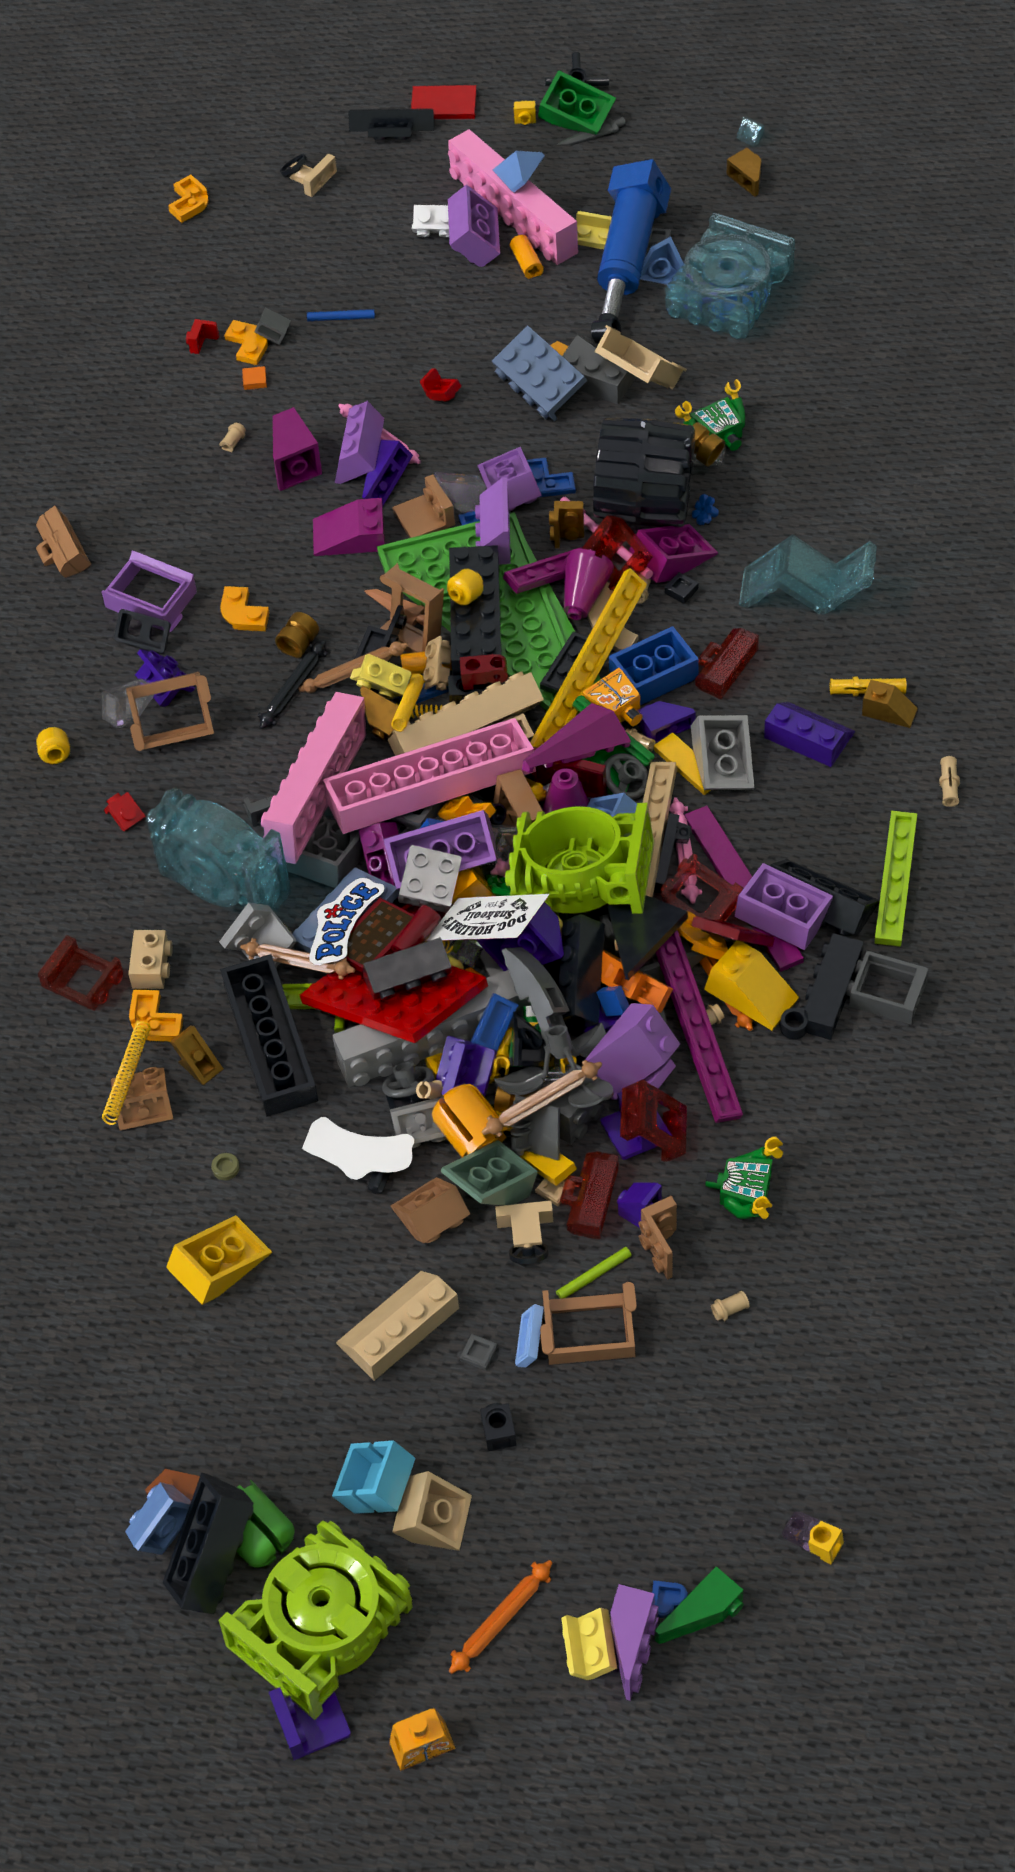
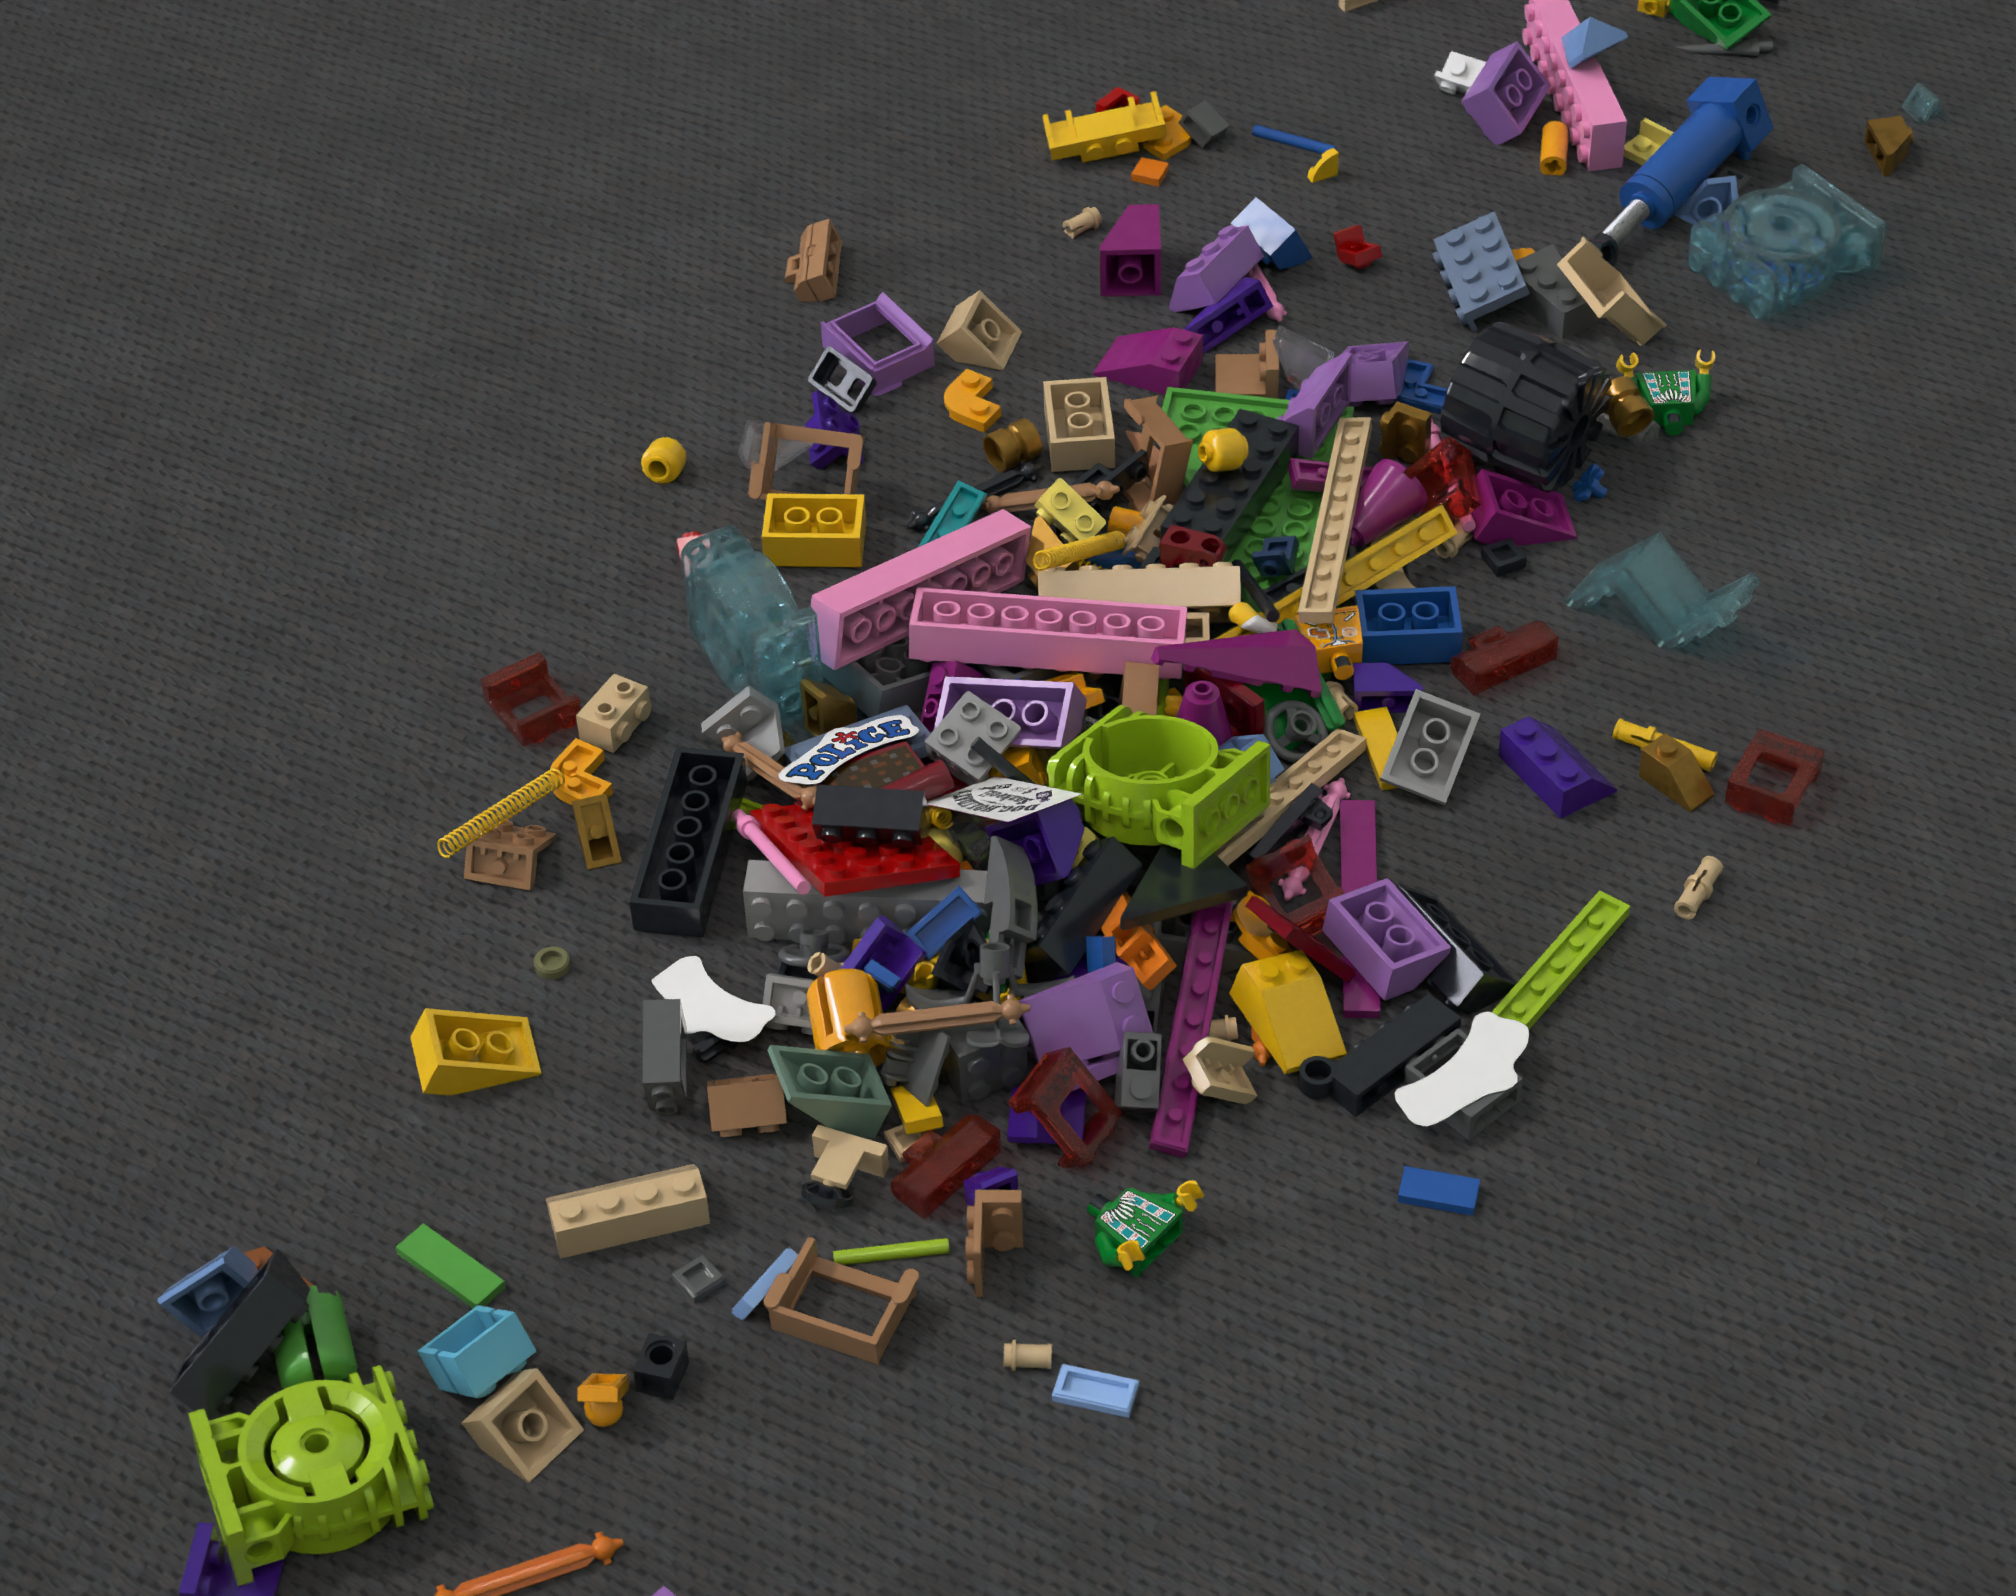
camera: 25 degrees right, 10 degrees down
(201, 757) = (814, 530): none -> yellow brick
(208, 359) = (1105, 132): none -> yellow bracket
(216, 555) = (979, 334): none -> tan slope
(292, 714) = (956, 512): none -> teal tile
(299, 895) = (825, 707): none -> pearl gold slope
(304, 1422) = (450, 1267): none -> bright green tile
(310, 1009) = (750, 830): none -> bright pink bar
(335, 600) = (1079, 424): none -> tan brick
(362, 1204) = (664, 1055): none -> dark grey window
(378, 329) = (1326, 166): none -> yellow tile
(386, 400) = (1275, 236): none -> slope
(462, 888) = (998, 761): none -> black bar
(475, 1466) = (603, 1397): none -> light orange tile
(478, 1081) = (883, 977): none -> blue tile
(538, 650) = (1277, 556): none -> dark blue bracket
(545, 685) = (1257, 593): none -> black bar
(555, 708) = (1249, 619): none -> arm
(567, 609) = (1335, 521): none -> tan plate
(685, 1074) = (1138, 1072): none -> dark grey slope
(733, 1050) = (1219, 1070): none -> tan bracket
(787, 1309) = (1095, 1390): none -> light blue tile
(895, 978) = (1476, 1070): none -> white sticker
(915, 1069) = (1439, 1190): none -> blue tile
(951, 662) = (1782, 754): none -> clear red window

